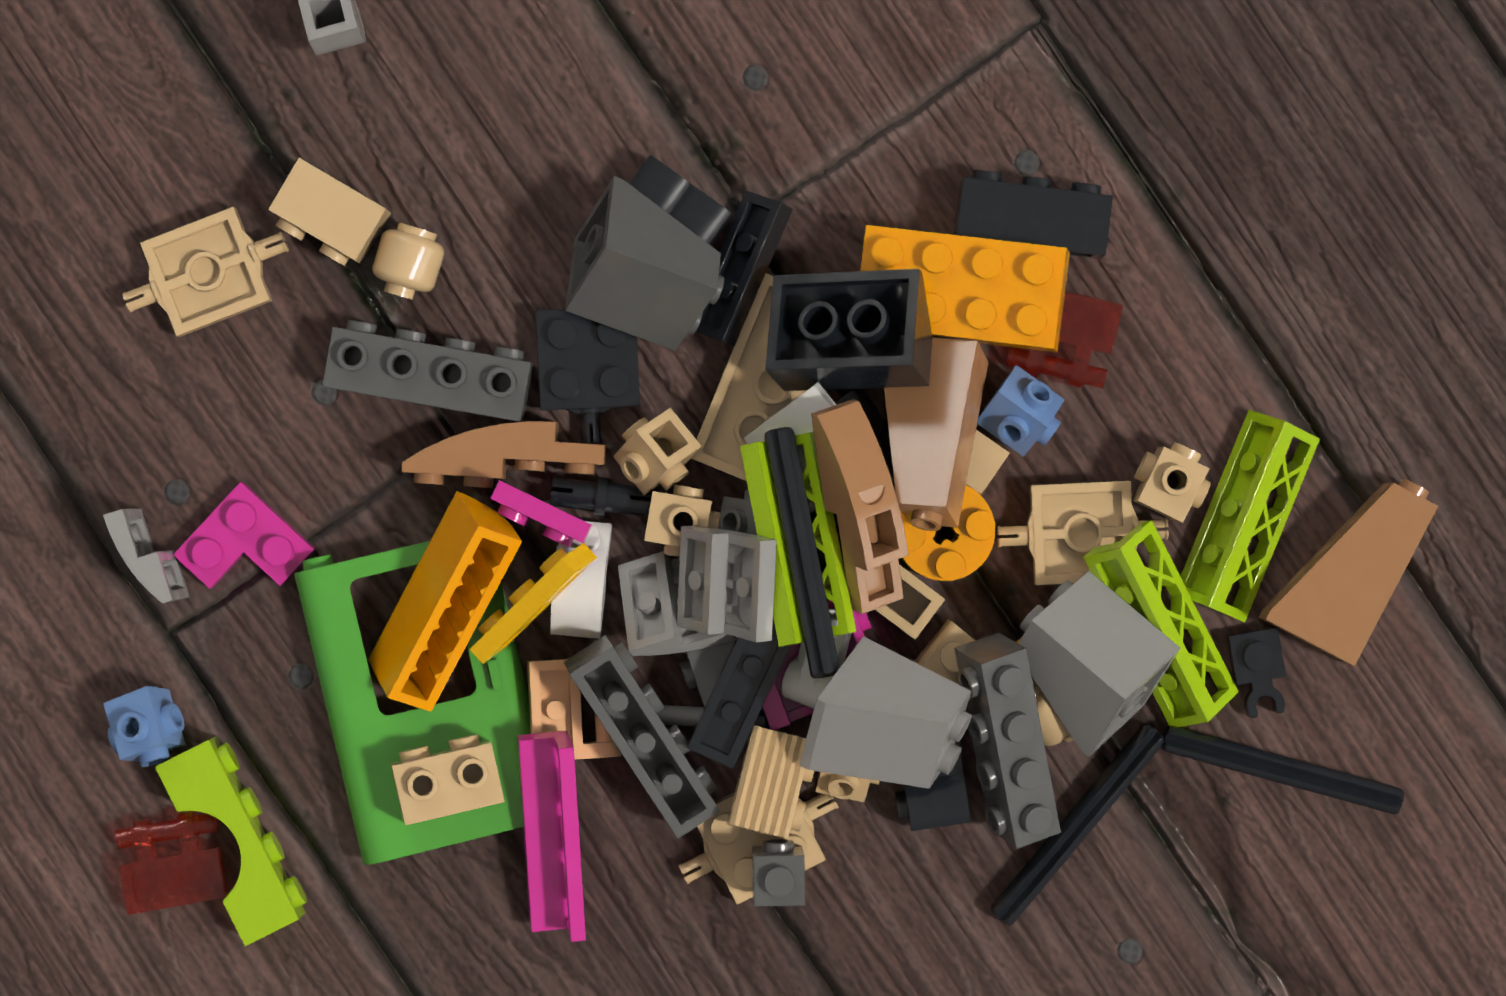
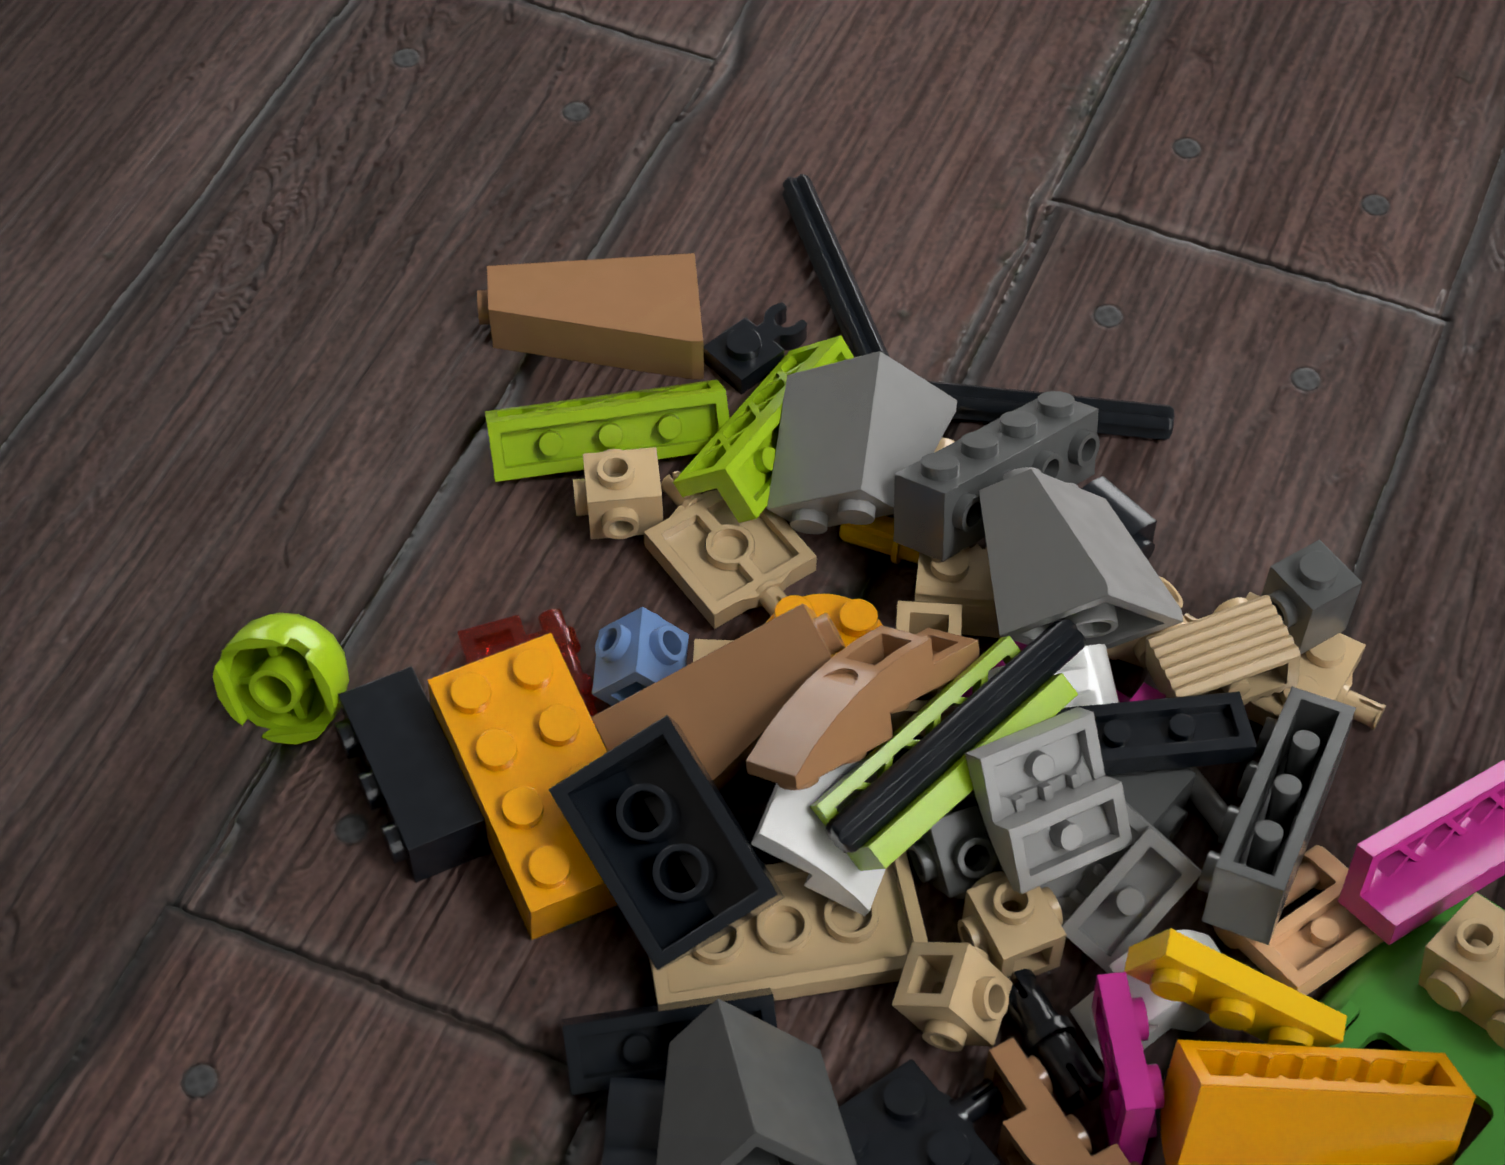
camera: 125 degrees left, 35 degrees down
(1160, 175) = (283, 677): none -> lime cylinder

